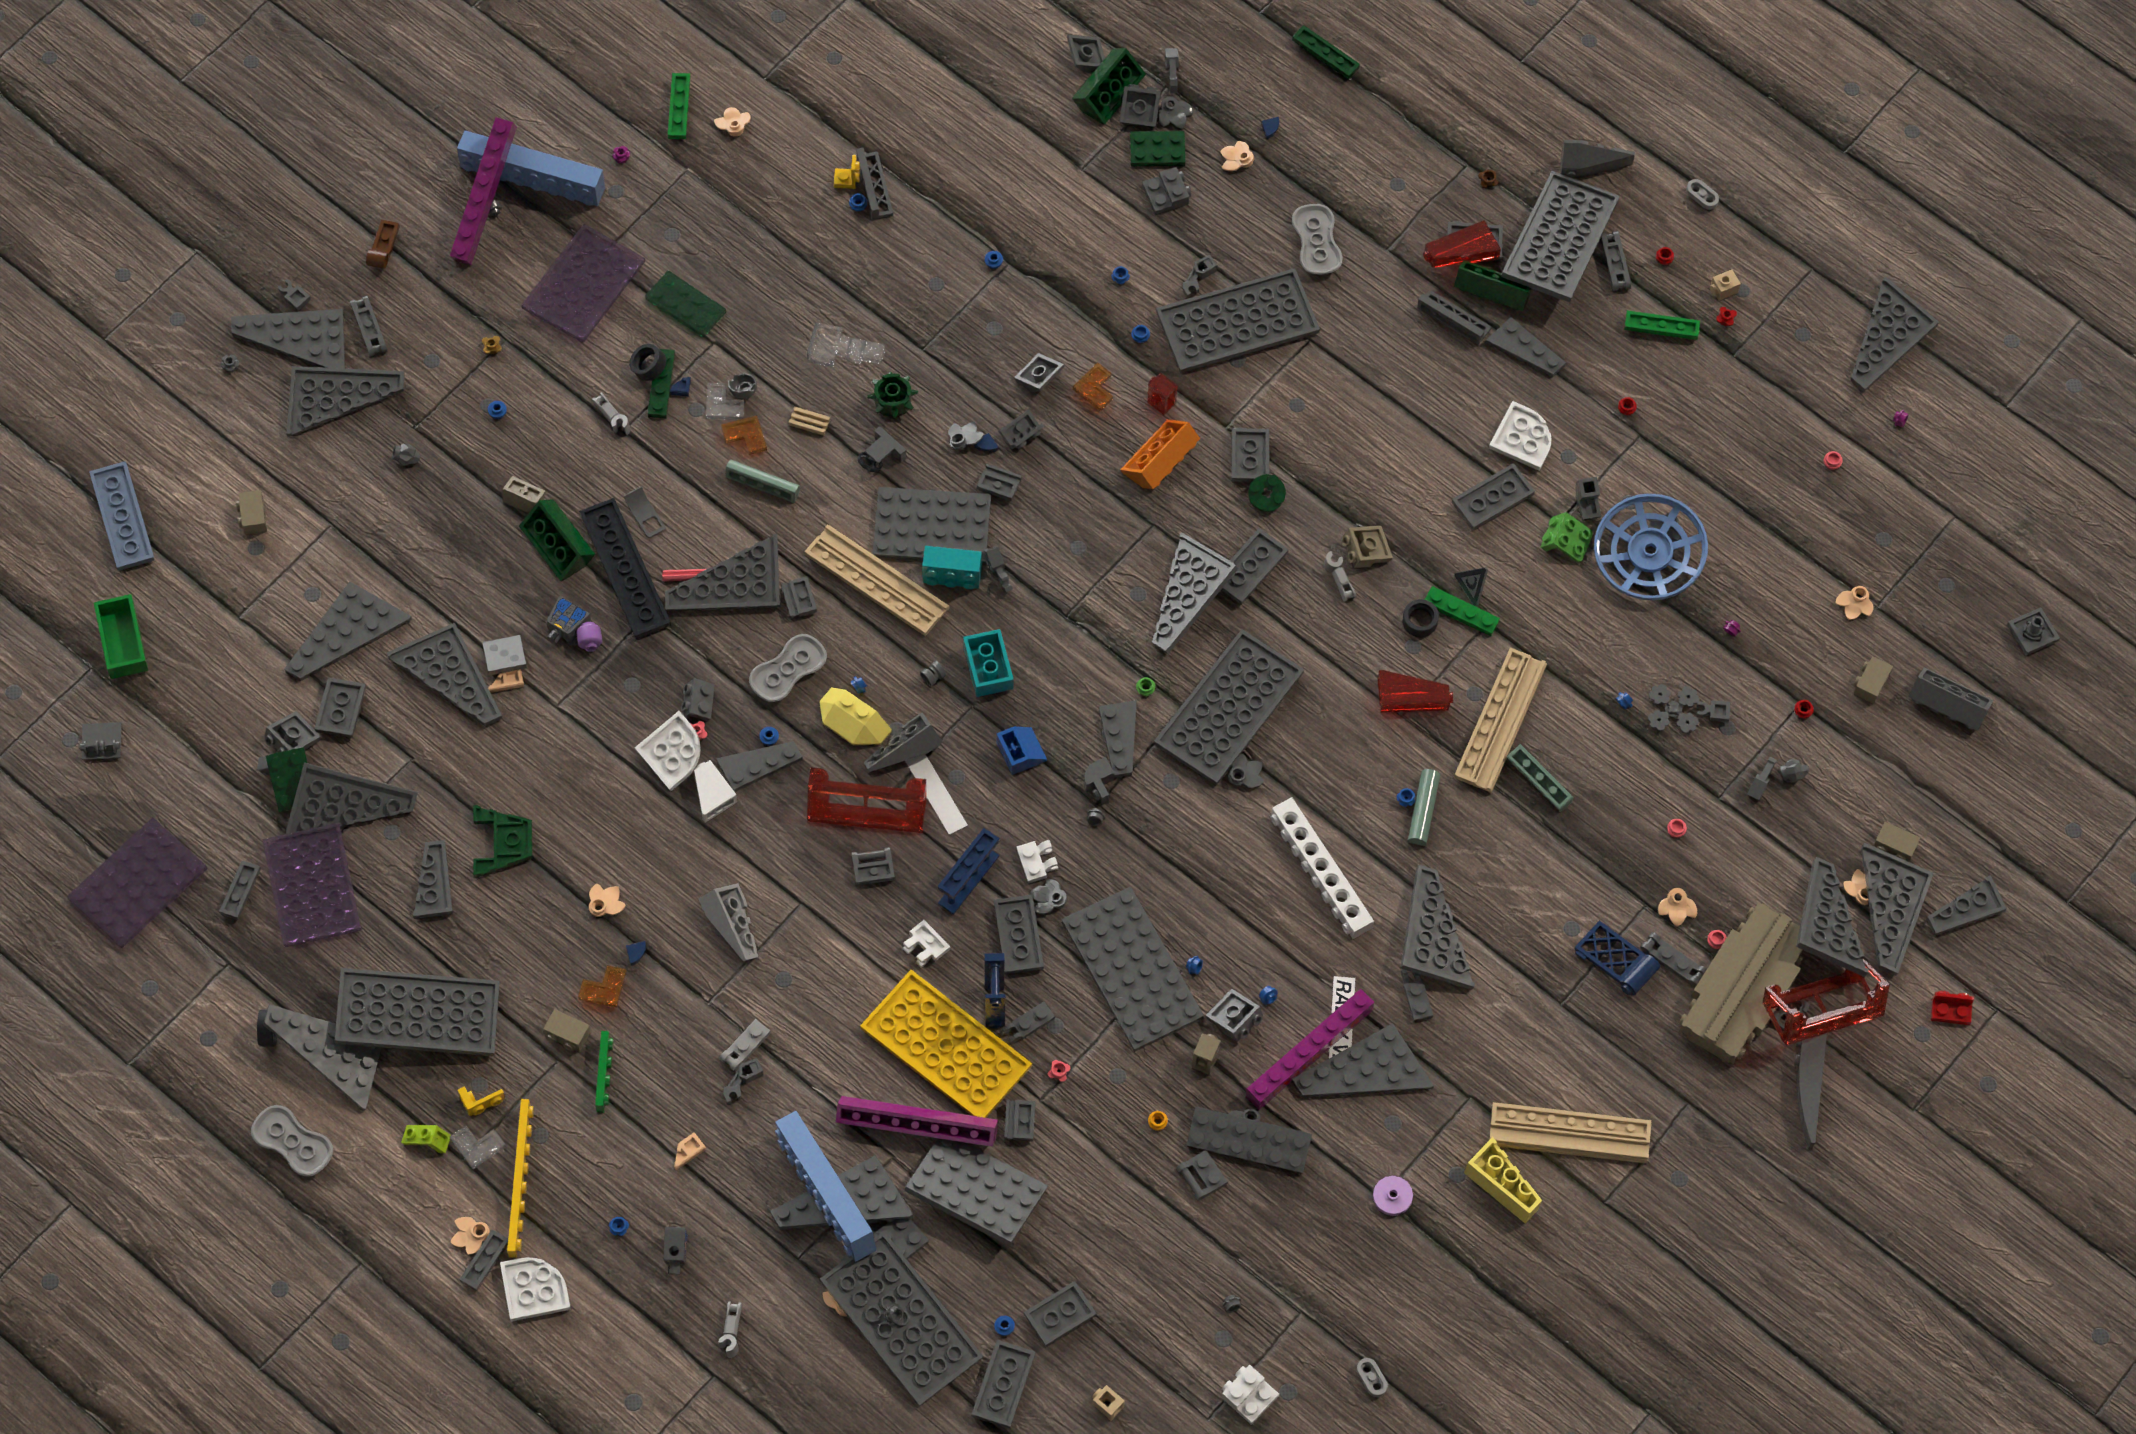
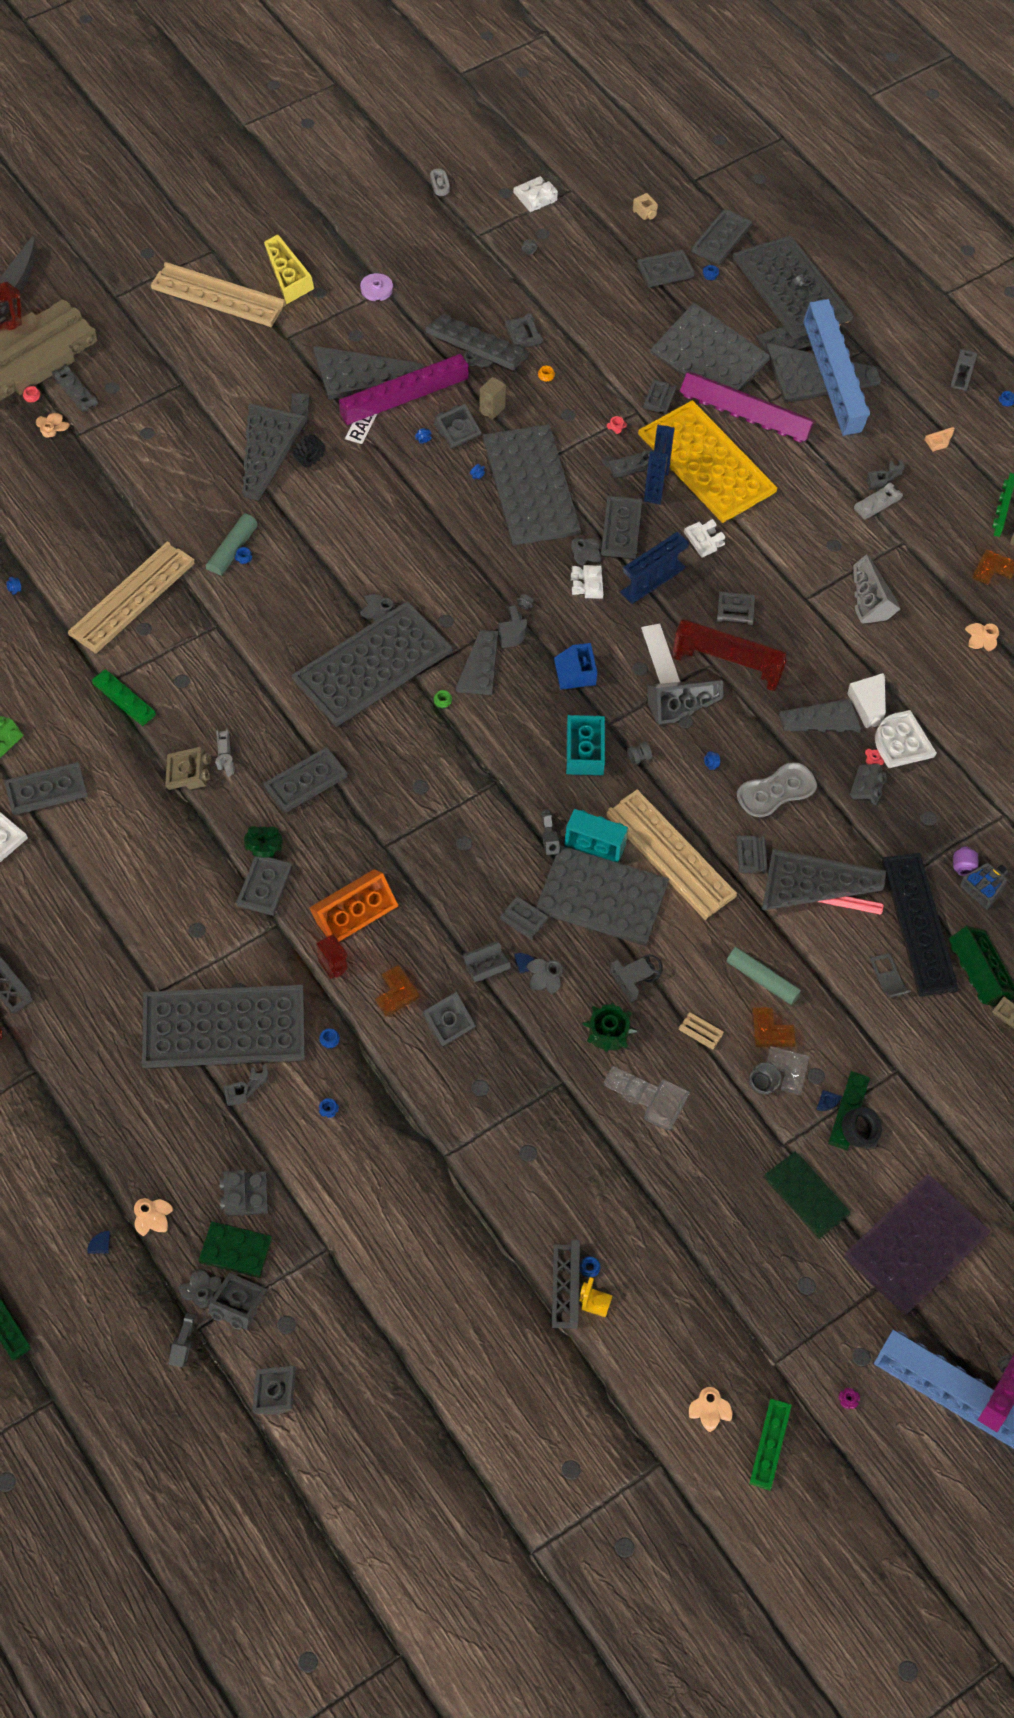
camera: 165 degrees left, 5 degrees down
(611, 414) = (908, 1086): light grey piece -> none
(636, 952) = (961, 591): dark blue tile -> none
(731, 1330) = (929, 309): light grey piece -> none
(769, 740) = (806, 742): blue plate -> none
(852, 718) = (727, 734): light yellow wedge -> none
(993, 264) = (458, 1165): blue plate -> none
(1105, 87) = (264, 1339): dark green slope -> none
(1194, 582) = (368, 769): wing -> none
(1290, 811) = (341, 517): white brick -> none
(1318, 250) = (103, 1105): light grey plate -> none
(1383, 933) = (309, 450): none -> black tyre
(1411, 694) = (203, 633): clear red slope -> none
(1427, 606) = (165, 684): black tyre -> none
(1472, 583) = (103, 712): black piece -> none
(1540, 778) = (120, 541): sand green brick -> none
(1635, 975) = (111, 384): dark blue piece -> none
(1676, 828) = (20, 480): coral plate -> none

